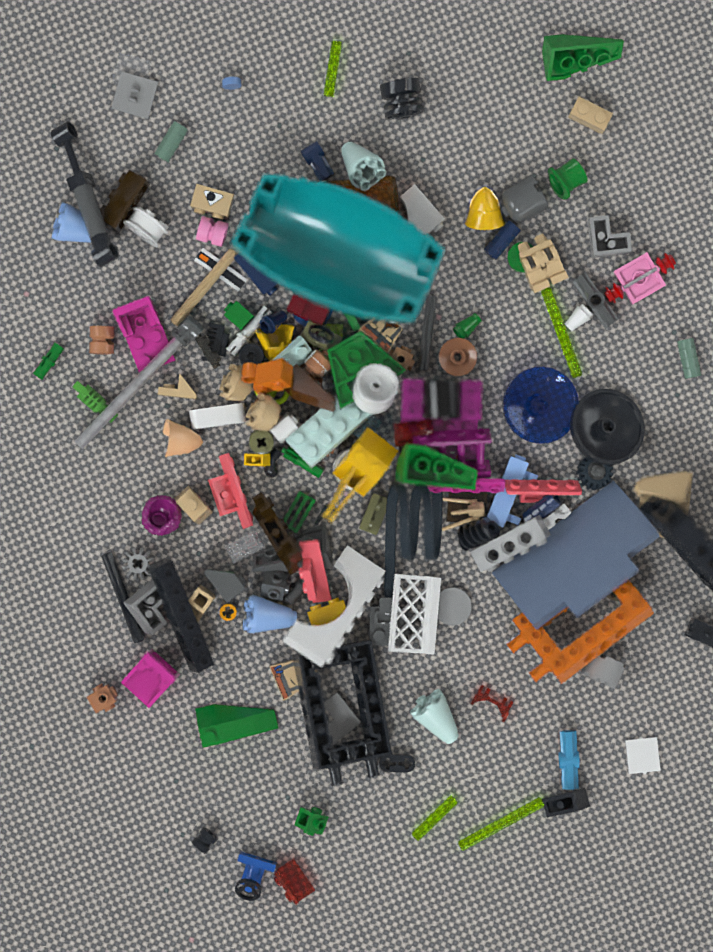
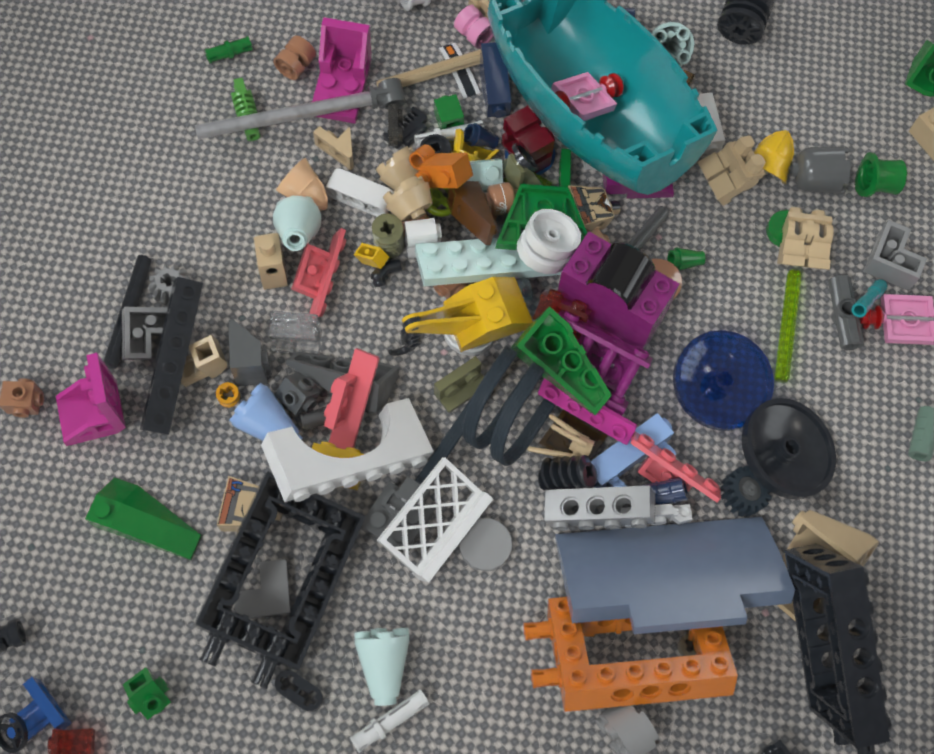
camera: 30 degrees right, 20 degrees down
(161, 515) = (229, 248): magenta hair -> none
(195, 472) = (296, 221): none -> light aqua cone
(274, 528) = (339, 332): dark brown bracket -> none
(292, 456) = (415, 283): green piece -> none
(306, 497) = (392, 321): green tile -> none
(333, 260) = (587, 96): none -> bright pink plate
(457, 754) = (380, 727): none -> white pin
(464, 240) = (743, 164): none -> tan hips
(502, 240) = (773, 198): dark blue axle -> none
(504, 710) = (452, 673): clear red piece -> none
(578, 317) = (817, 319): white cone -> none
(605, 295) = (866, 302): none -> teal piece

